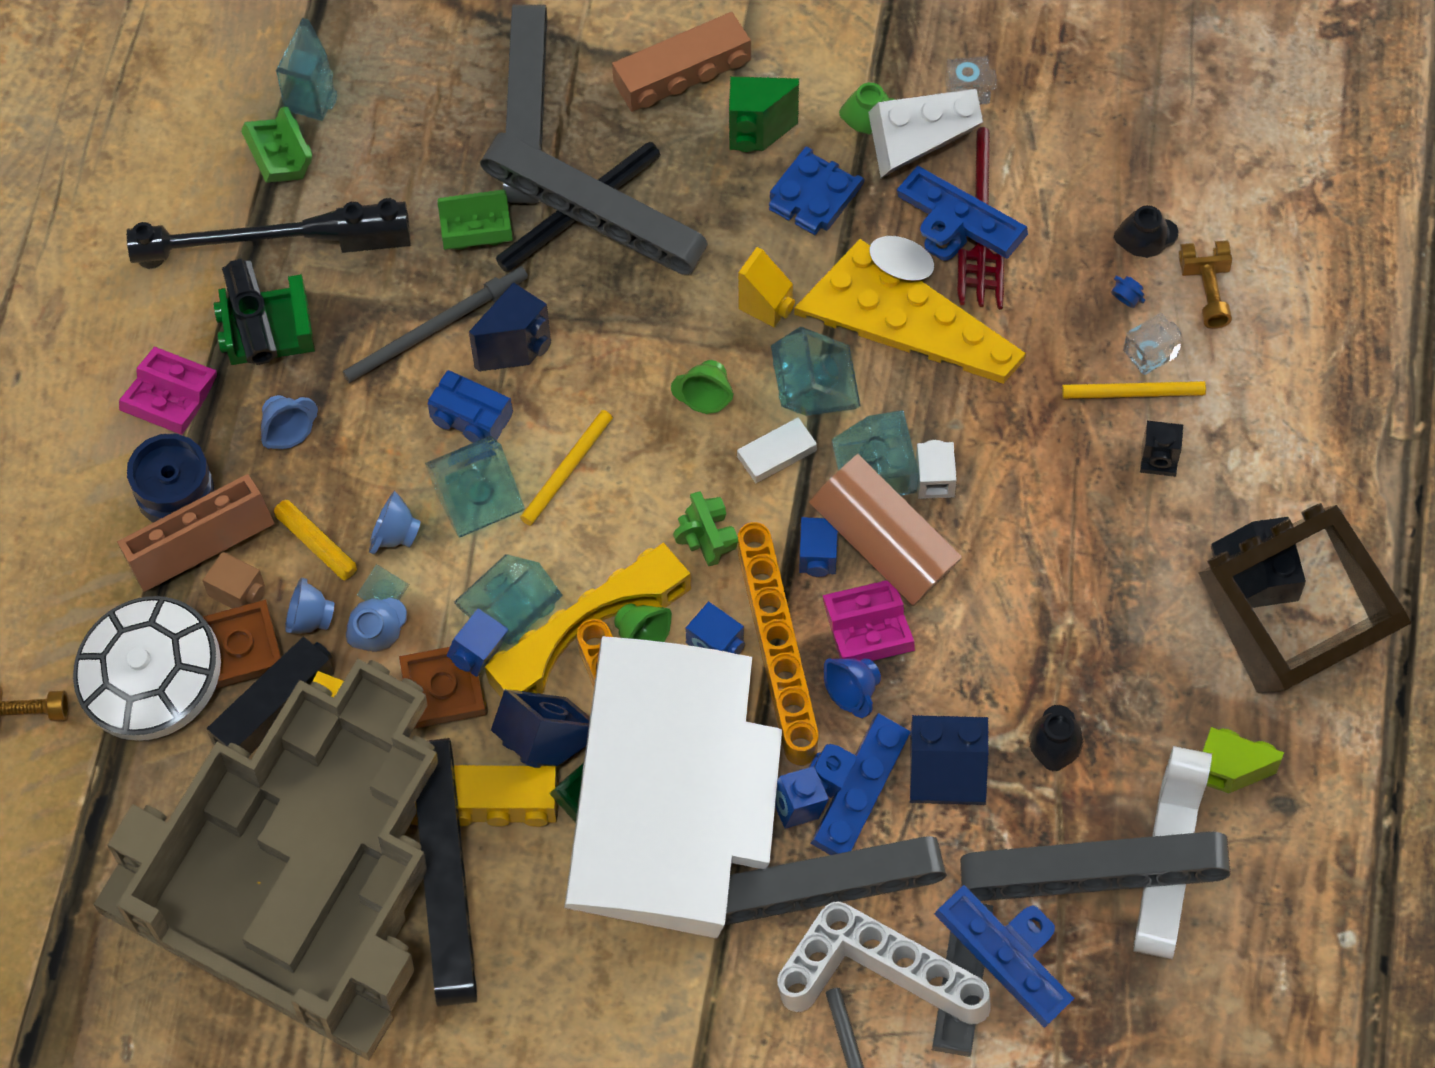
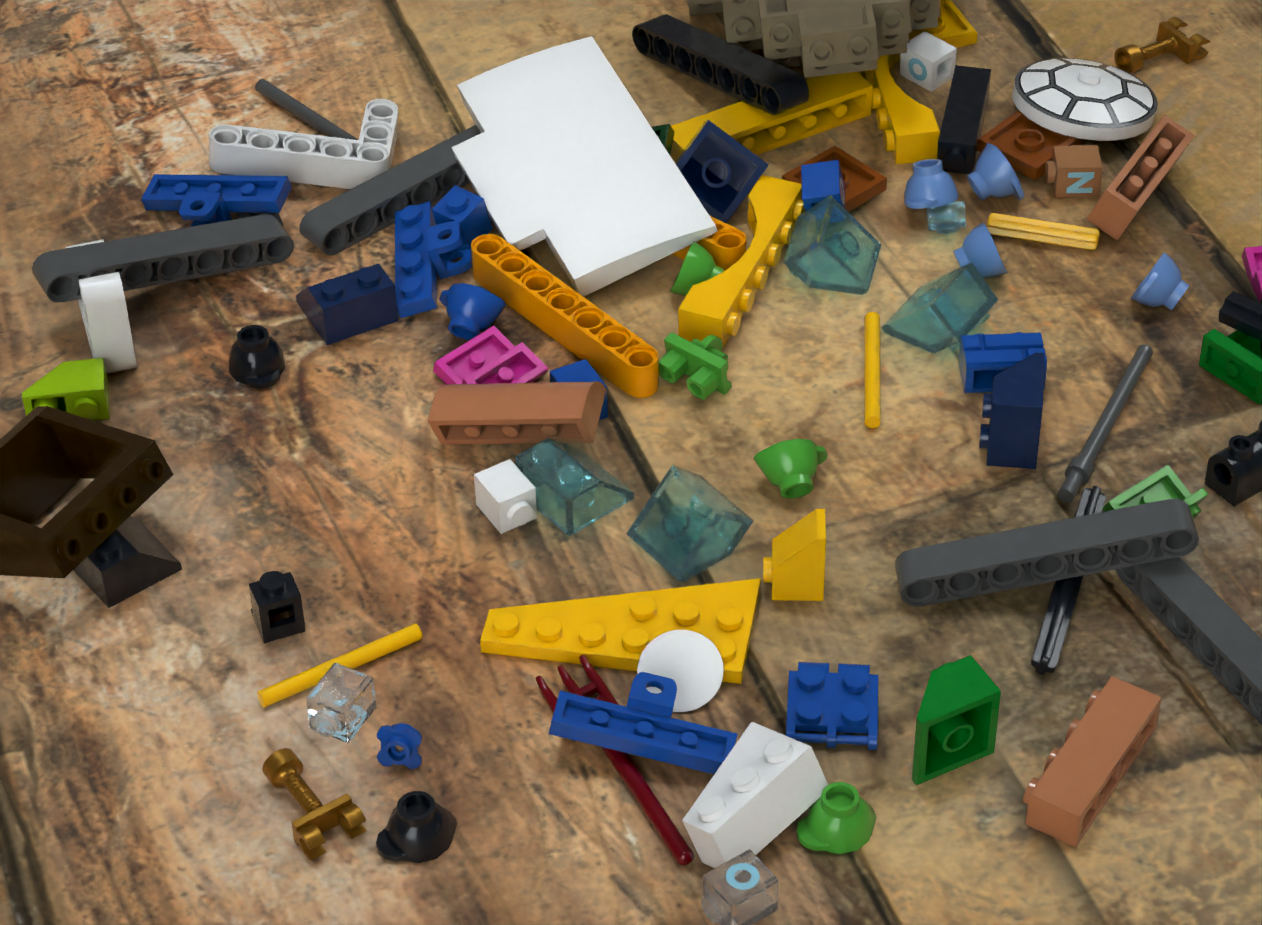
camera: 150 degrees right, 20 degrees down
(168, 475) = (1204, 199): dark blue wheel -> none
(715, 631) = (624, 295): blue brick -> none
(776, 450) = (687, 450): white tile -> none

